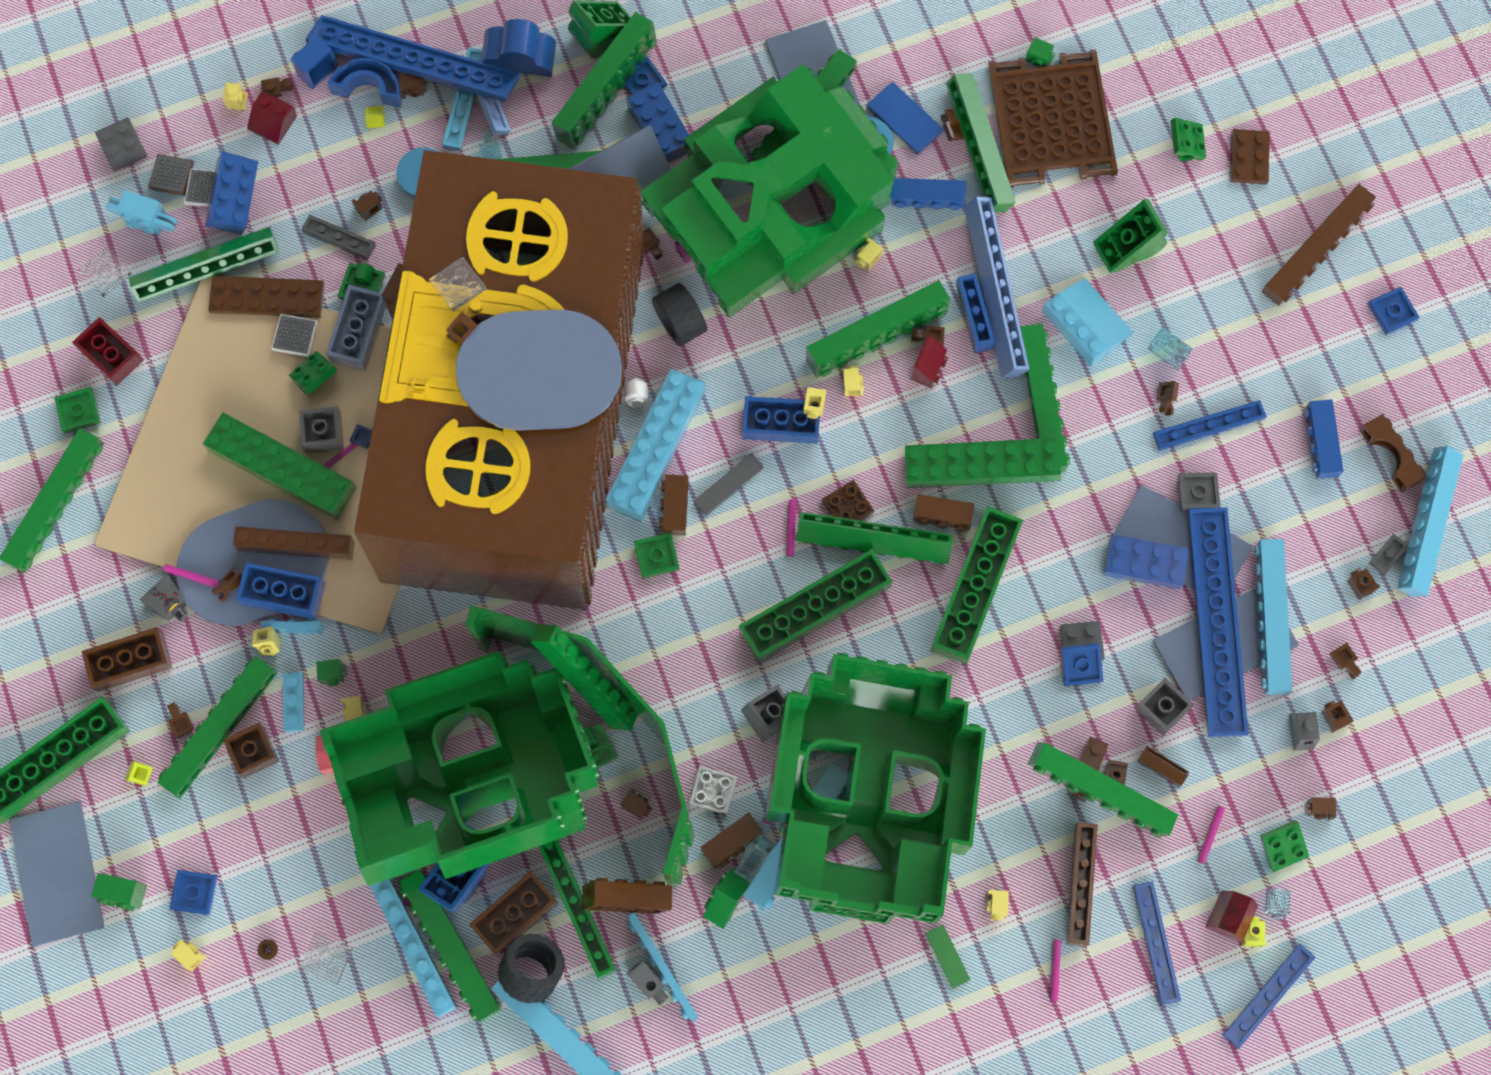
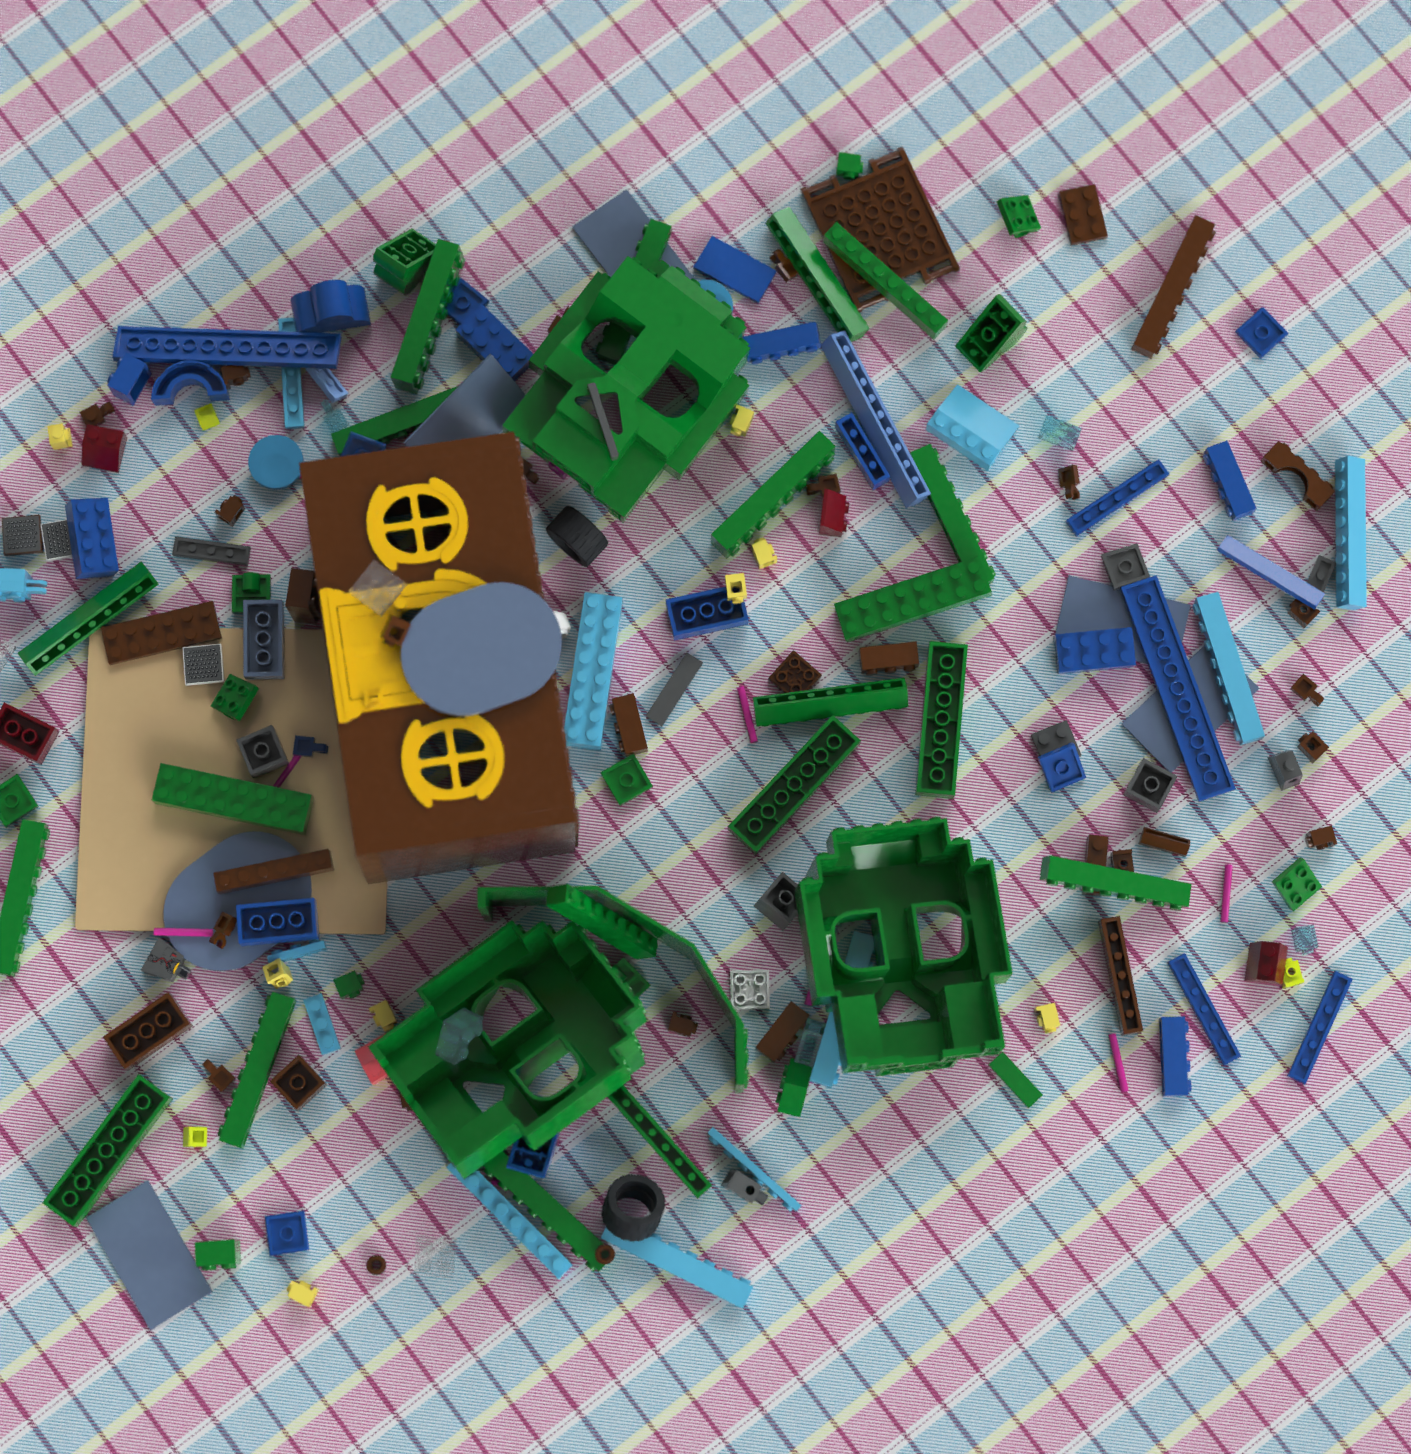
camera: 20 degrees left, 5 degrees up
(409, 743) = (456, 1035): none -> clear light blue brick
(482, 1006) = (600, 1259): none -> reddish brown plate
(513, 913) = (599, 1161): reddish brown brick -> none
(627, 897) = (702, 1114): reddish brown brick -> none
(731, 204) = (603, 422): none -> dark grey tile
(1043, 163) = (885, 280): none -> green brick
(1112, 981) = (1174, 1056): none -> blue brick
(1341, 536) = (1271, 572): none -> tile

